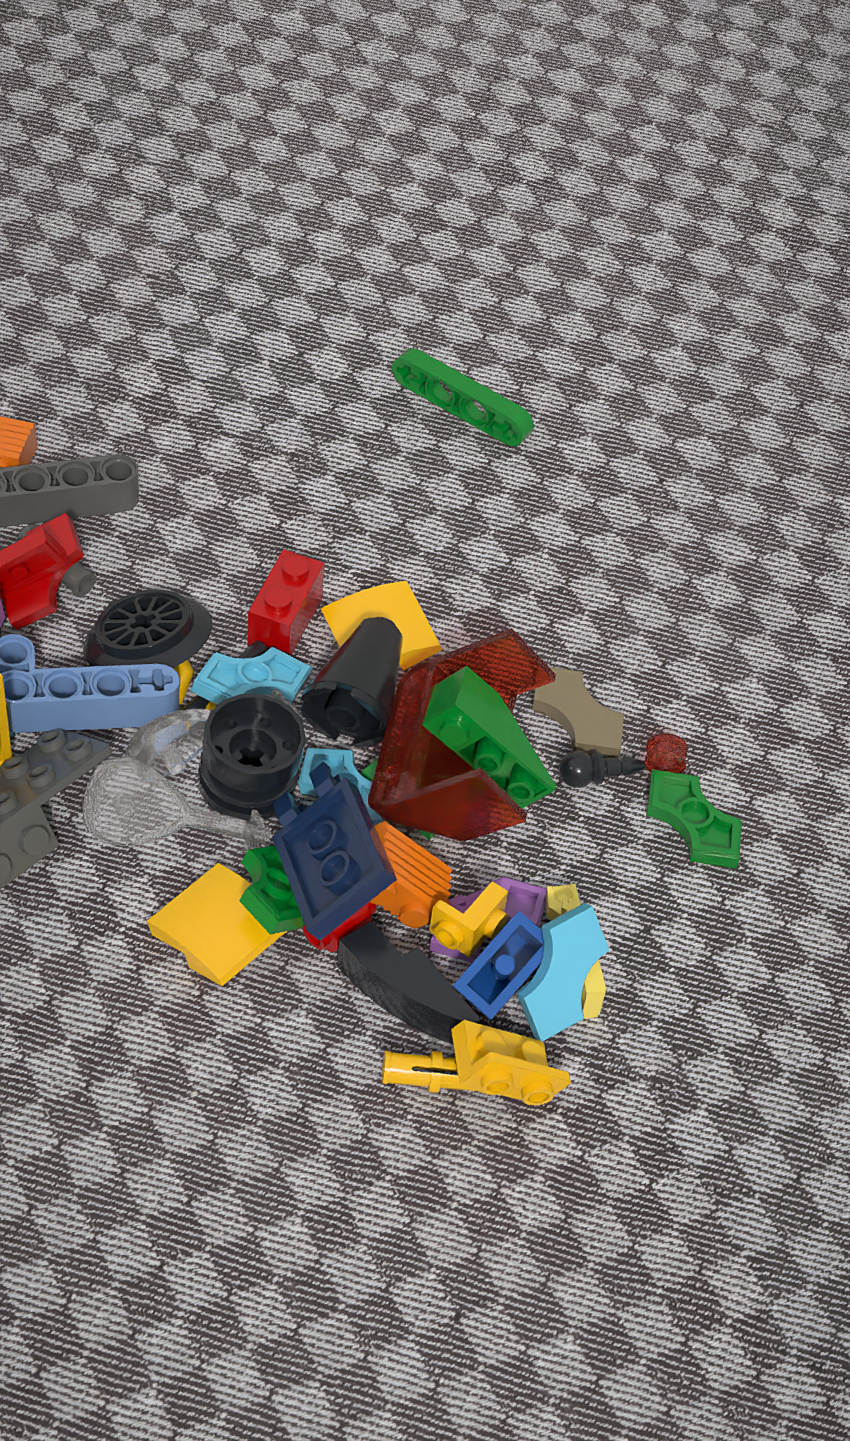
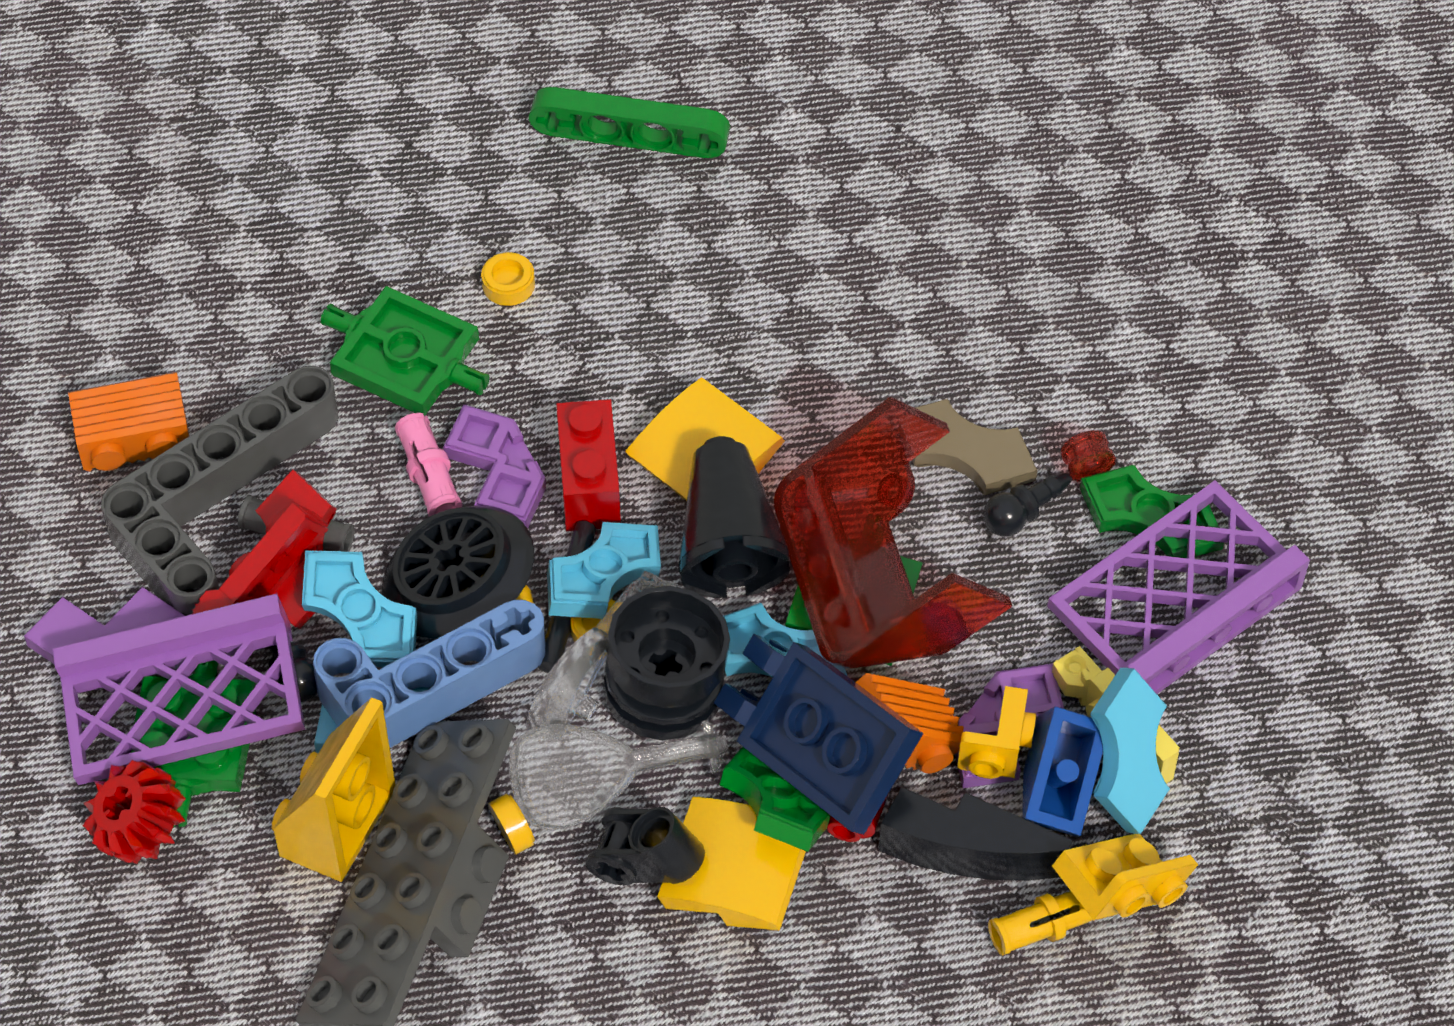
camera: 20 degrees left, 5 degrees up
(52, 609) = (340, 589): none -> medium azure tile
(71, 823) = (511, 823): none -> yellow tile
(156, 881) = (645, 848): none -> black piece
(175, 556) = (427, 463): none -> bright pink pin
(206, 478) = (404, 350): none -> green plate
(233, 571) = (499, 447): none -> medium lavender tile
(312, 464) = (508, 279): none -> yellow tile
(485, 734) = (902, 523): green slope -> none
(681, 917) = (1218, 617): none -> medium lavender fence

